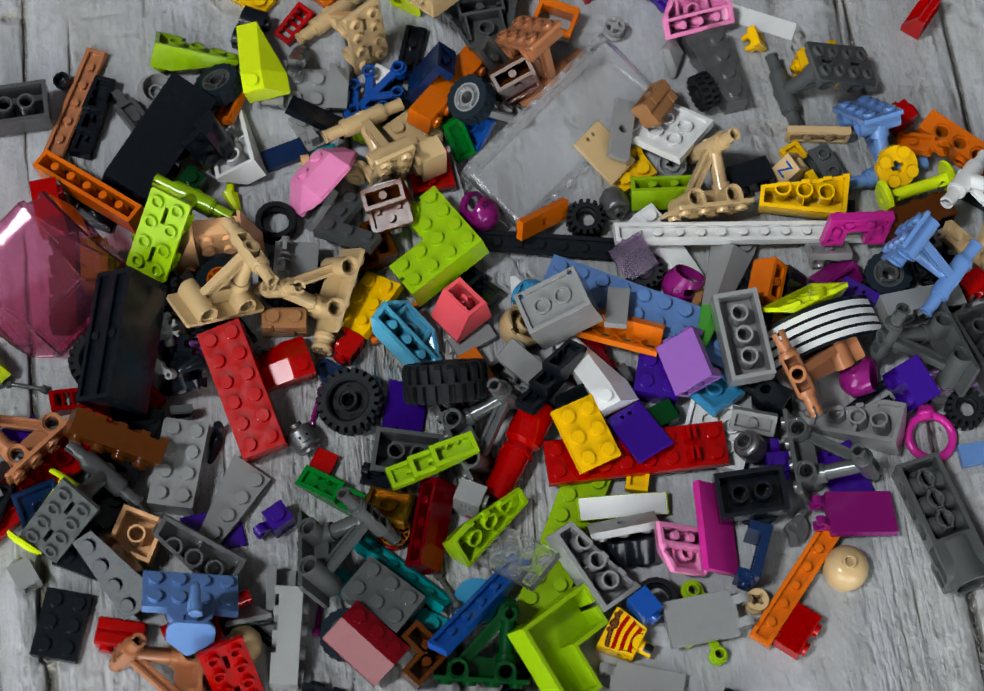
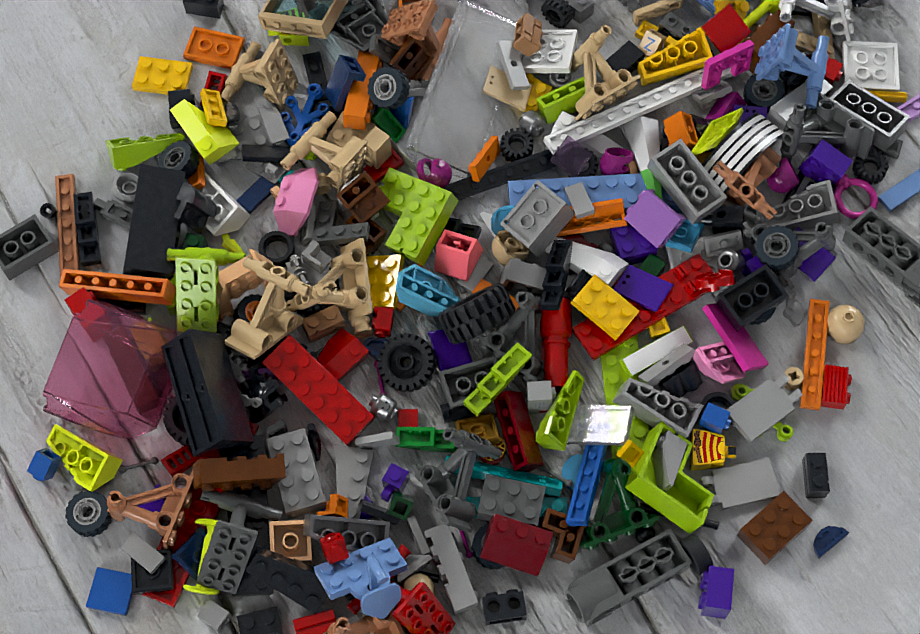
camera: 20 degrees left, 0 degrees up
(172, 559) = (334, 547): none -> red brick
(201, 520) = (336, 506): none -> orange panel
(243, 545) = (377, 511): none -> black tile
(268, 548) = (400, 505): none -> dark green brick
(279, 470) = (377, 440): none -> light grey tile
(281, 43) = (213, 108): none -> yellow plate
(308, 248) = (315, 257): none -> light grey panel
(532, 601) = (630, 453): none -> yellow tile
(571, 625) = (667, 459): none -> light grey slope
(715, 456) = (714, 280): none -> red plate
(758, 535) = (774, 328): dark blue panel -> none
(800, 438) = (777, 236): none -> black wheel
(855, 513) = (832, 279): magenta tile -> none
(875, 188) = (726, 29): none -> red tile

